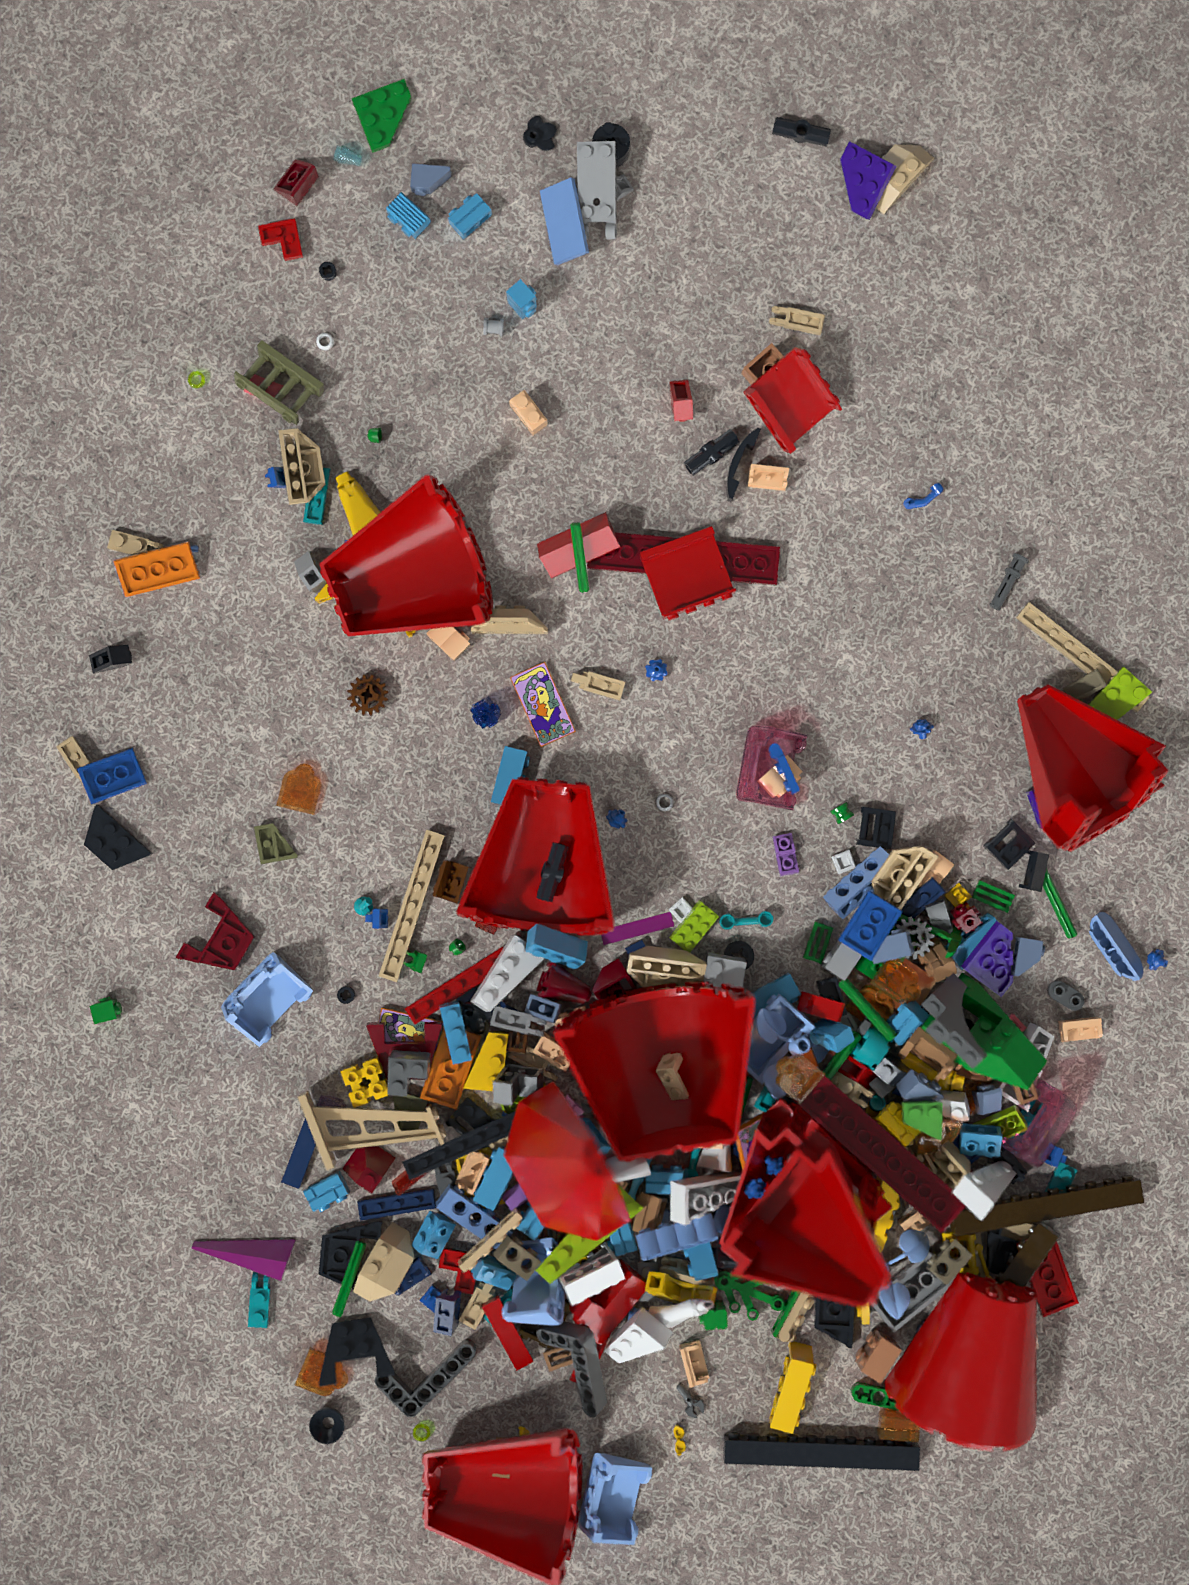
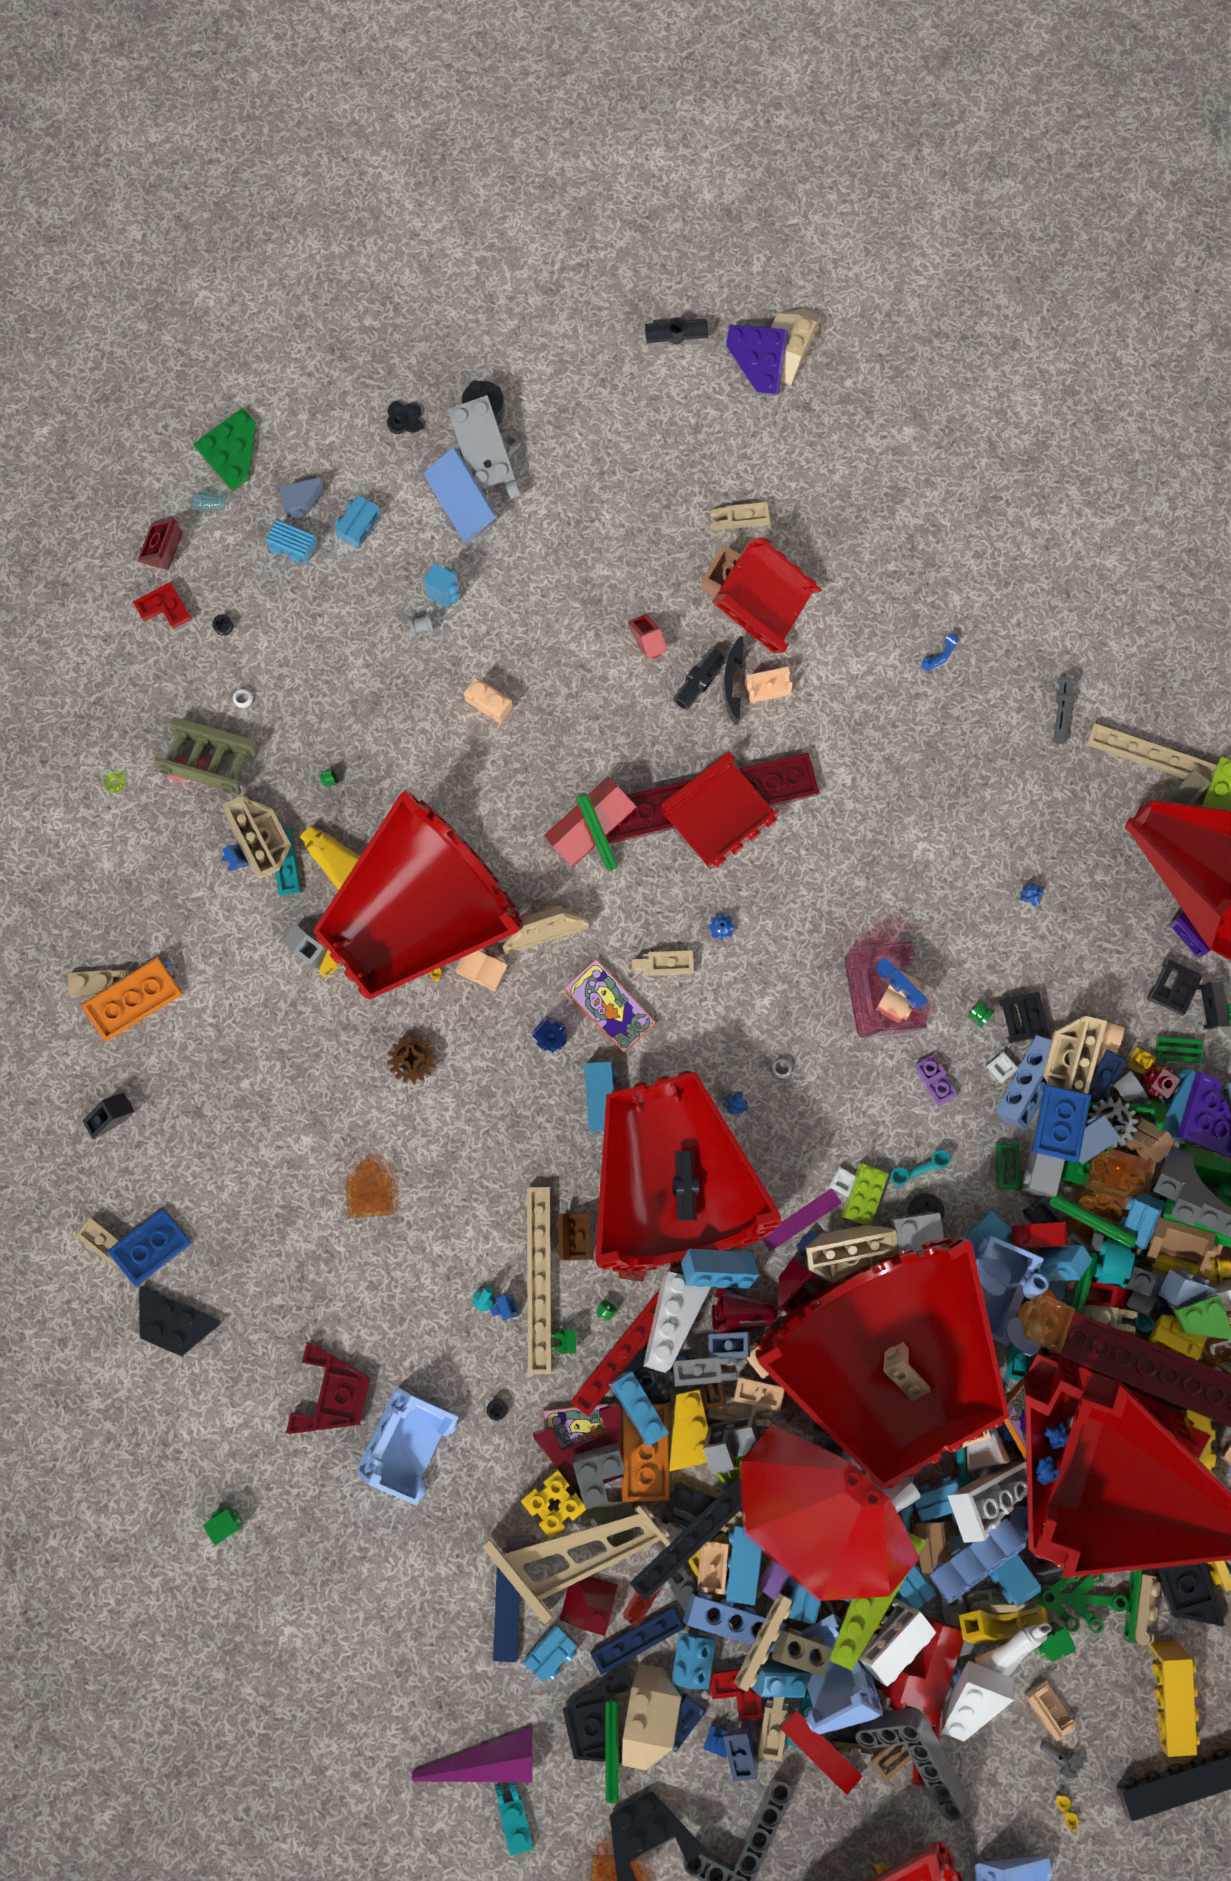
camera: 15 degrees left, 10 degrees down
(272, 845) = (357, 1265): olive wing -> none

